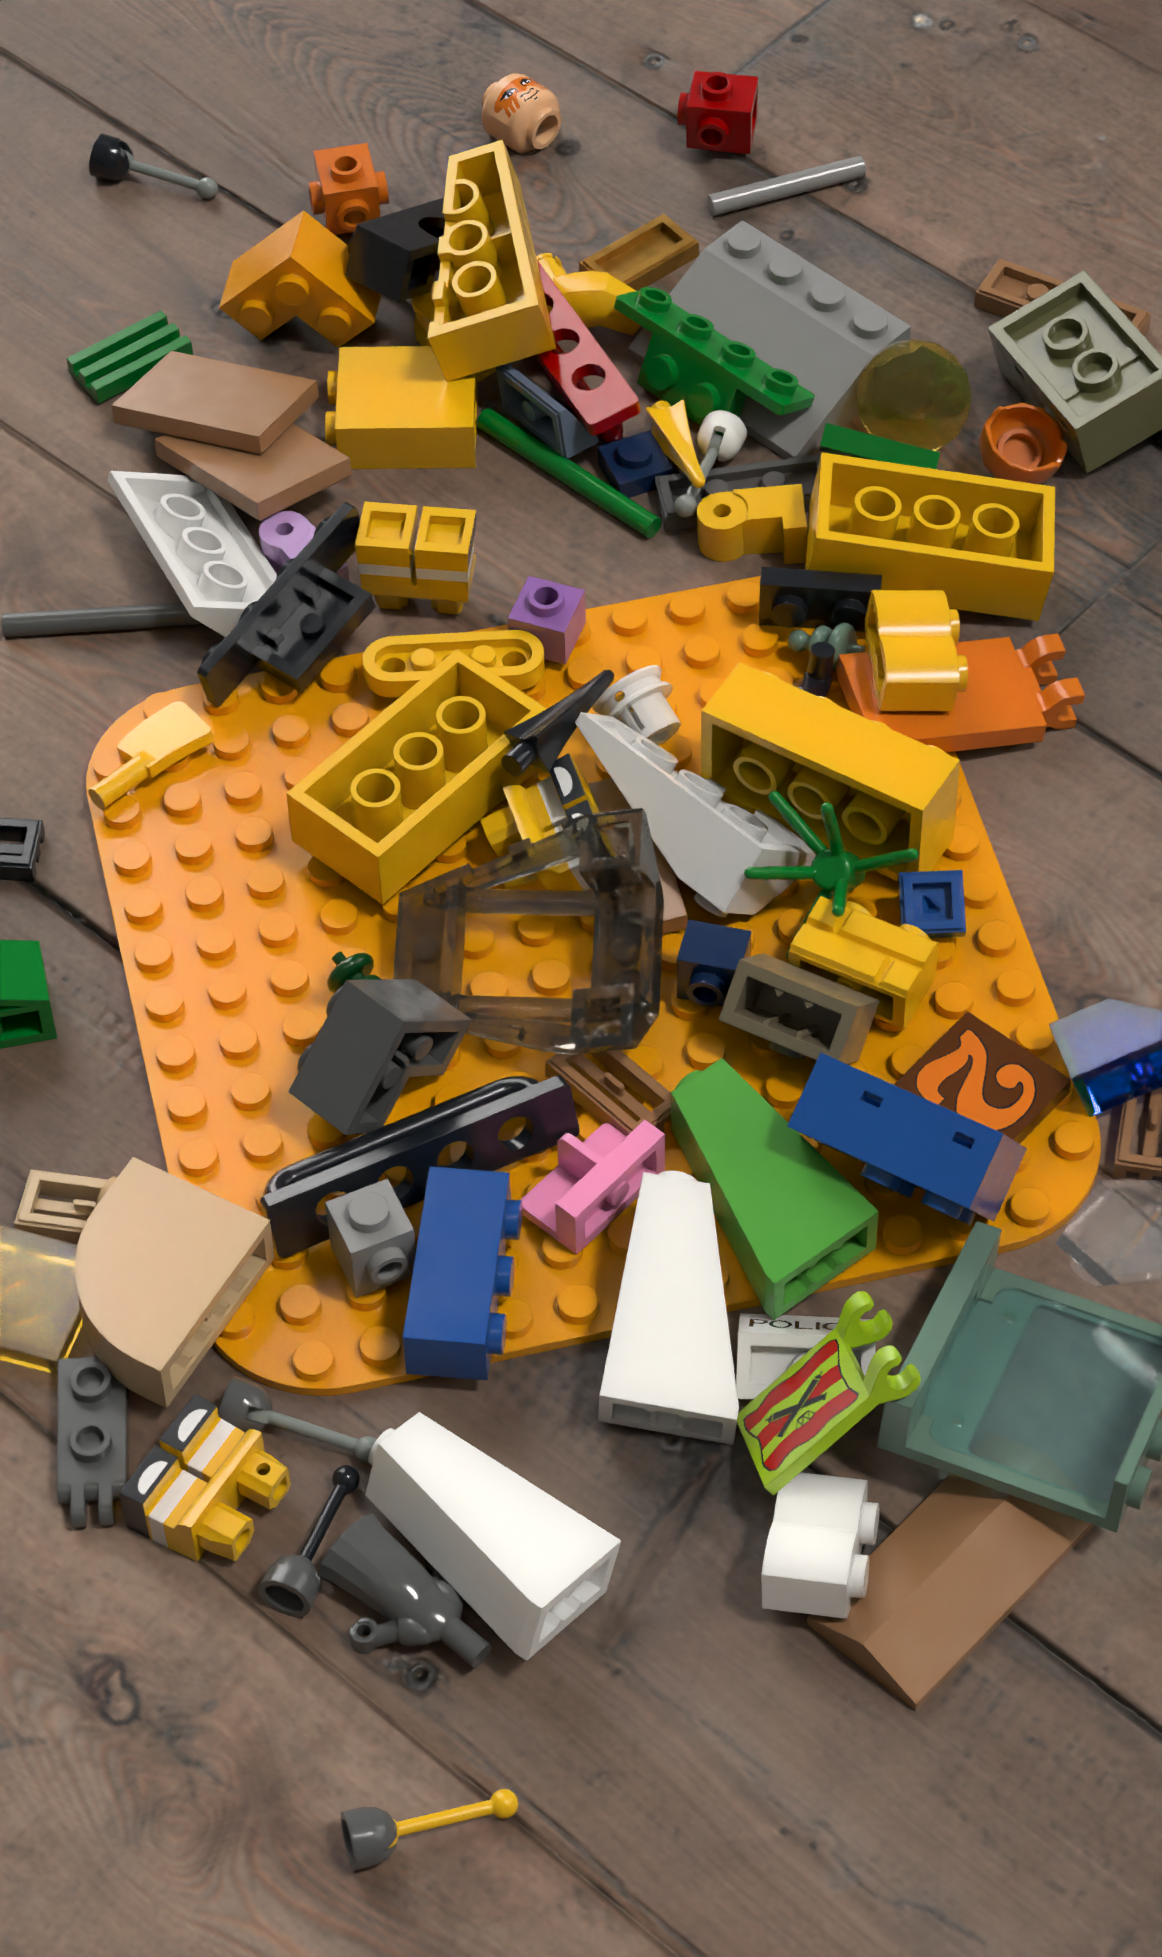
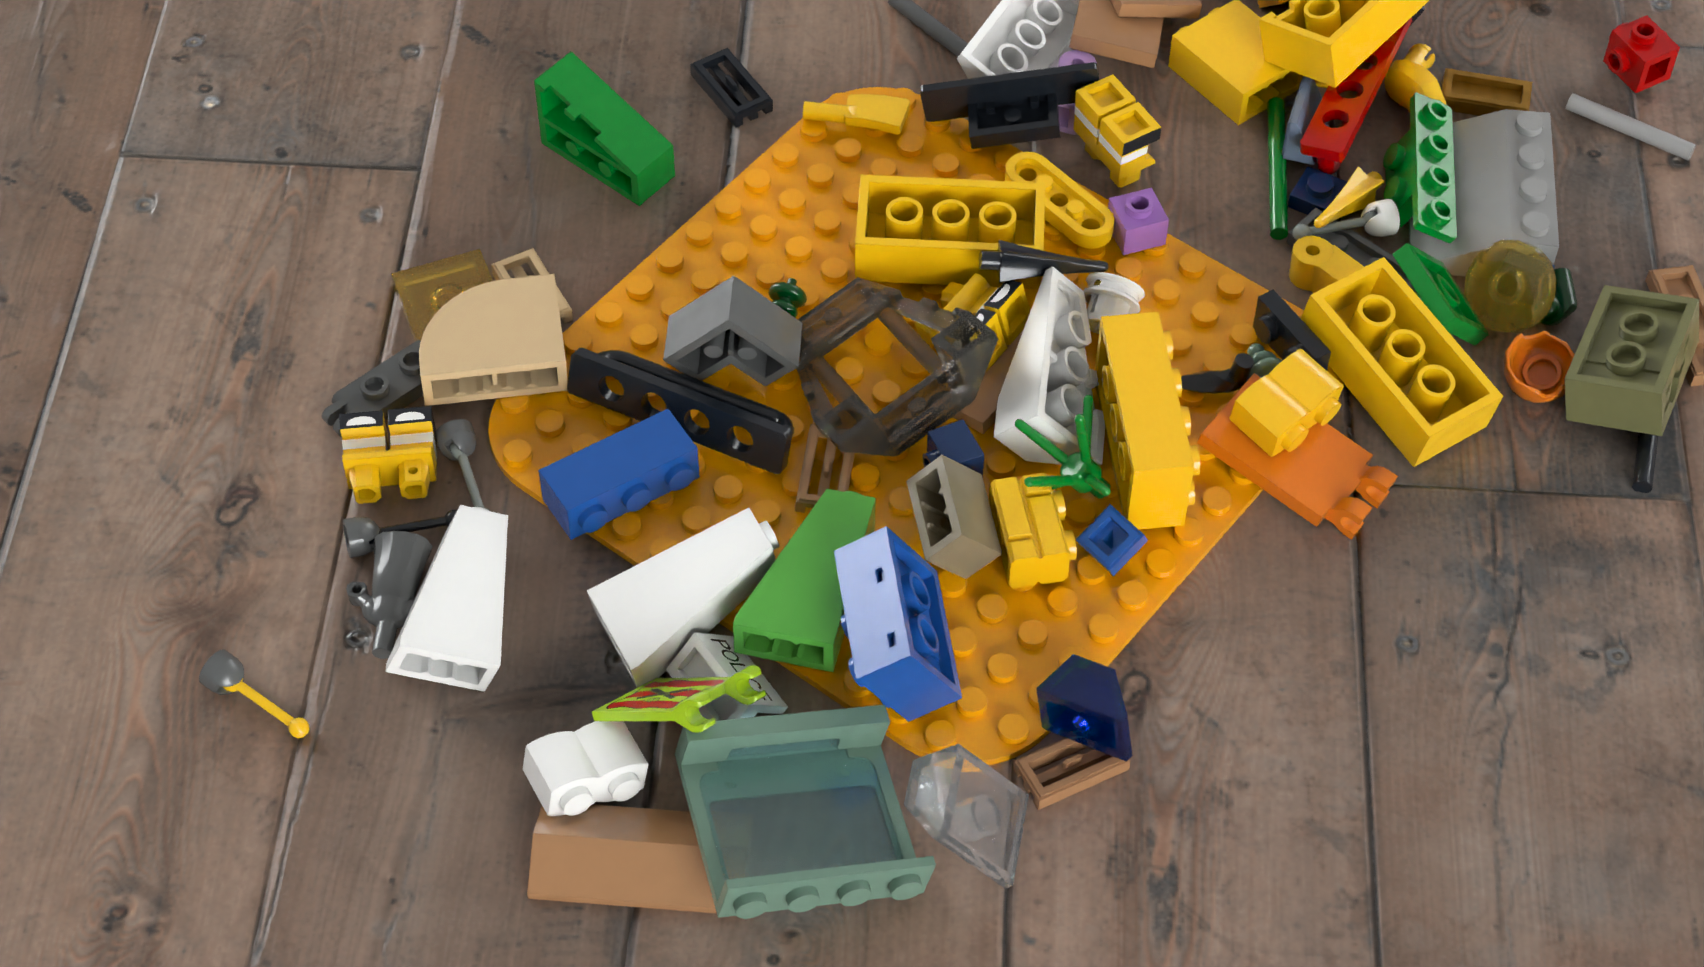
camera: 50 degrees right, 0 degrees up
(371, 1237) = (602, 411): light grey brick -> none
(593, 1182) = (725, 496): bright pink panel -> none
(987, 1079) = (998, 650): tile -> none

